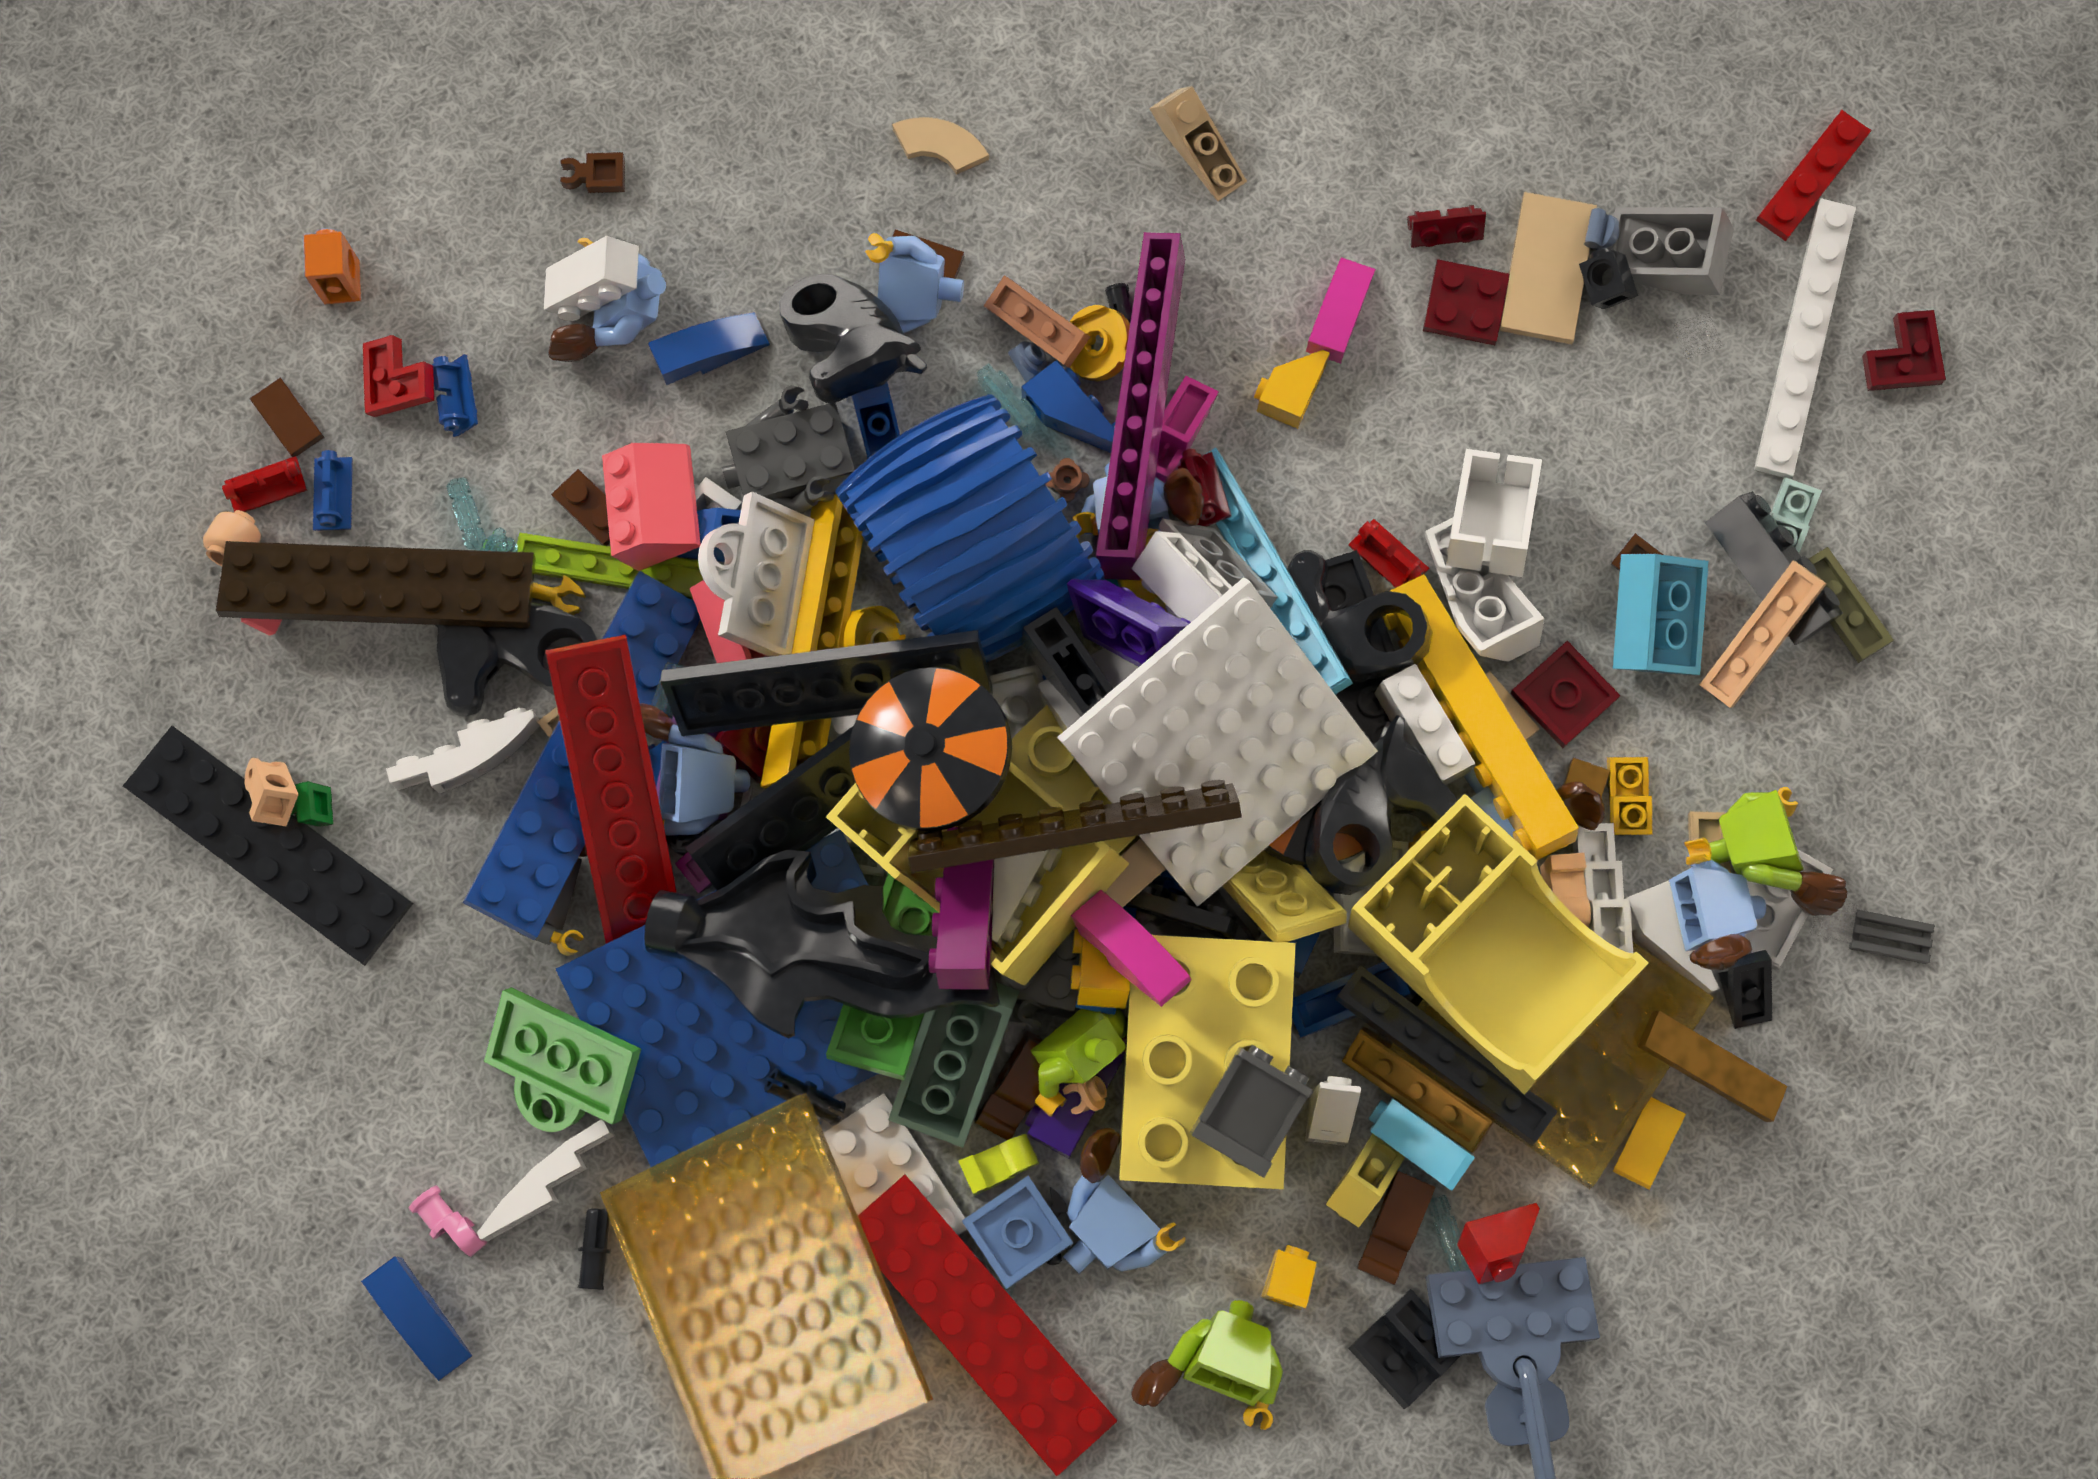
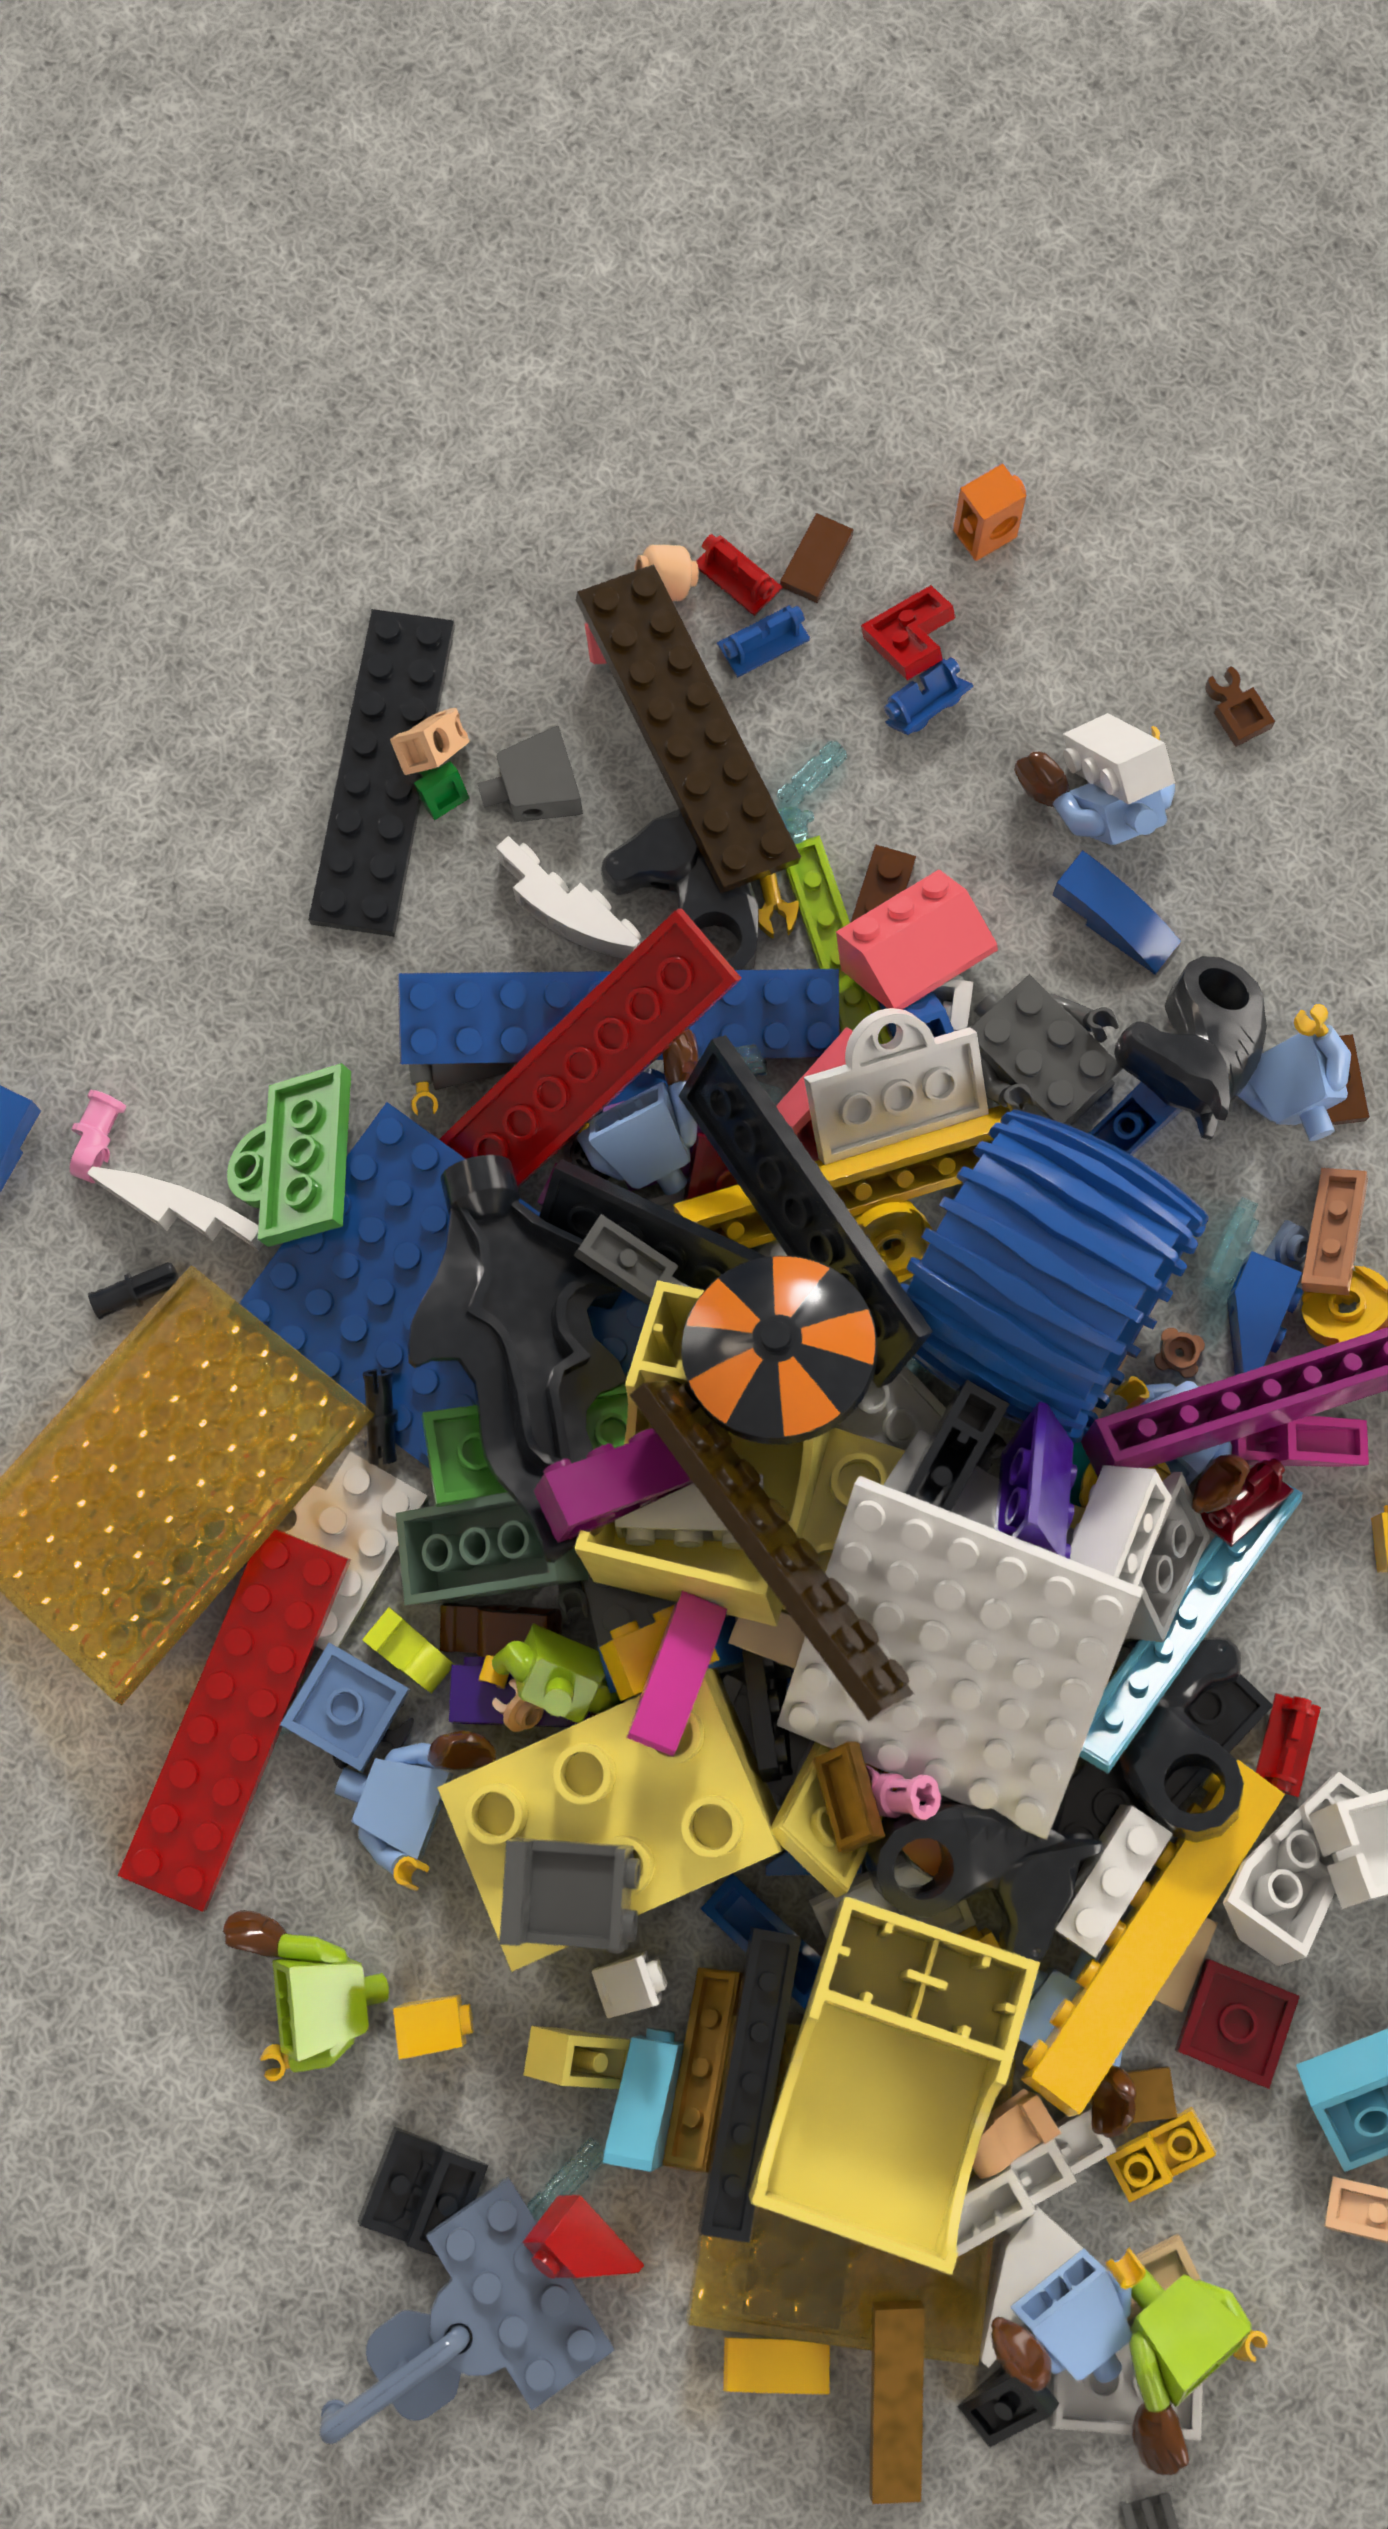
camera: 65 degrees right, 0 degrees up
(347, 726) = (534, 779): none -> dark grey torso
(792, 837) = (625, 1259): none -> dark grey plate
(1278, 876) = (848, 1797): none -> pearl gold tile
(1299, 834) = (907, 1795): none -> bright pink connector
(1395, 1227) = (544, 2117): reddish brown piece -> none

